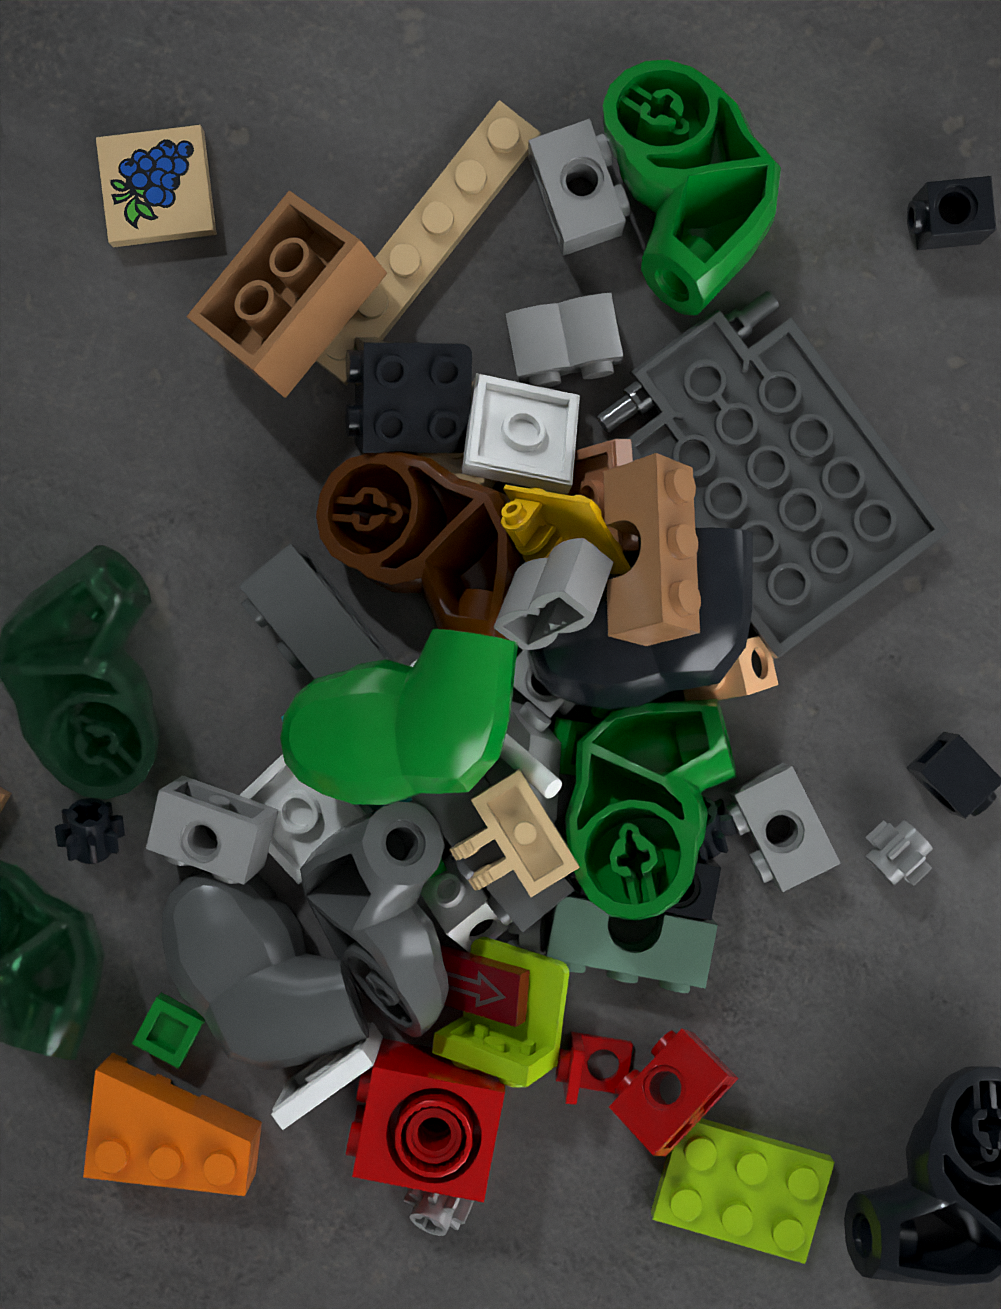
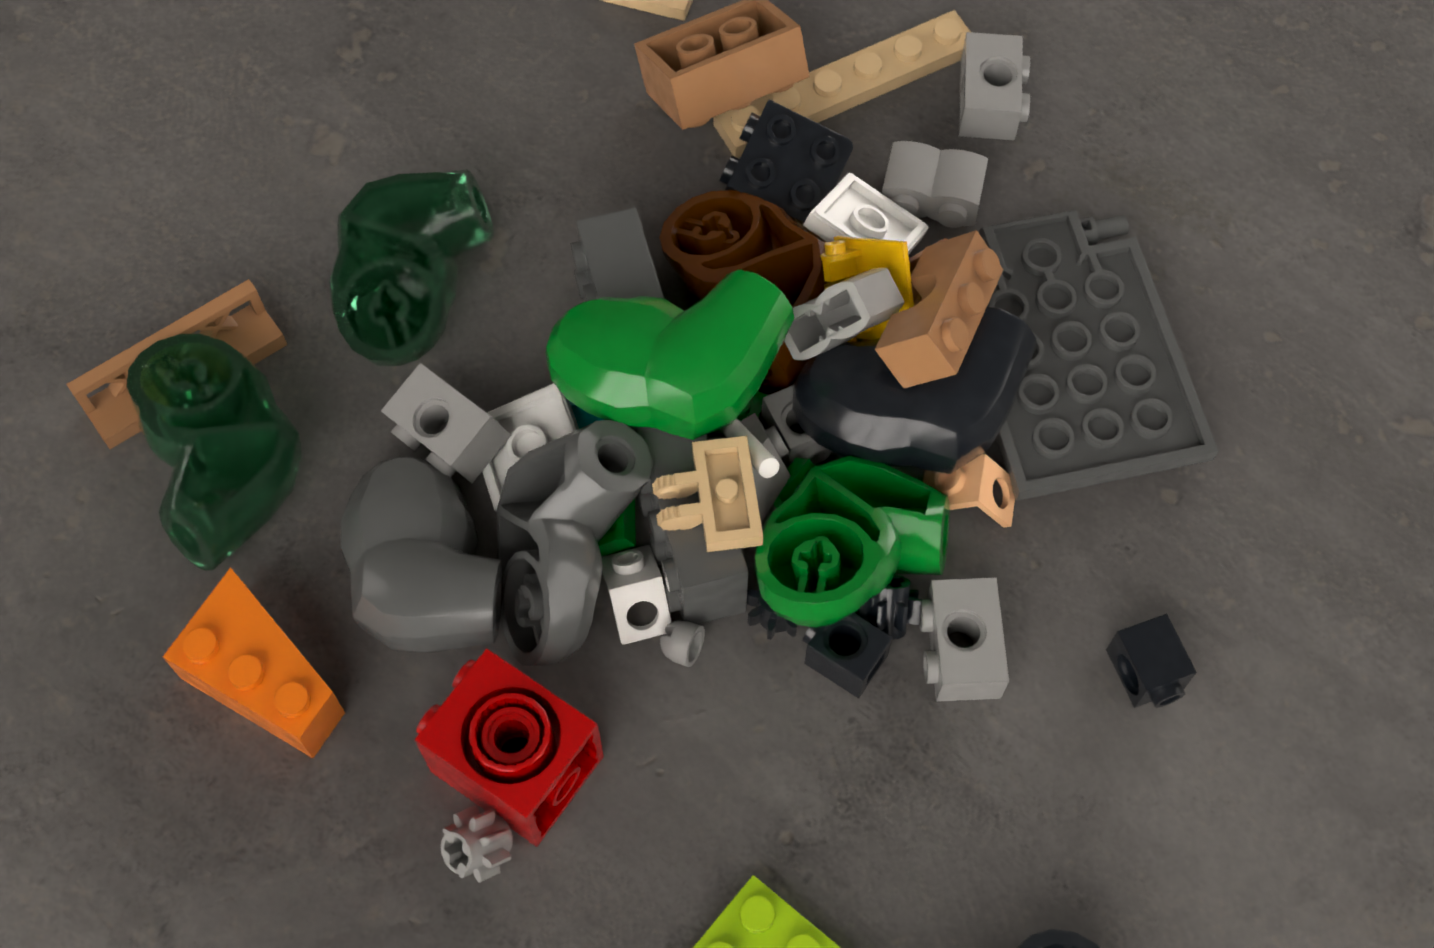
camera: 20 degrees right, 25 degrees down
(89, 831) = (339, 386): black gear -> none
(169, 1030) = (310, 583): green plate -> none
(325, 1078) = (426, 665): white tile -> none
(486, 986) = (620, 656): dark red tile -> none
(509, 1052) = (636, 685): lime bracket -> none
(573, 1064) = (672, 773): red bracket -> none
(674, 952) = (810, 710): sand green arch -> none
(696, 167) = (1096, 108): green piece -> none
(702, 1082) = (757, 836): red brick -> none
(899, 852) = (1070, 707): light grey gear -> none
(971, 201) = (1304, 216): black brick -> none

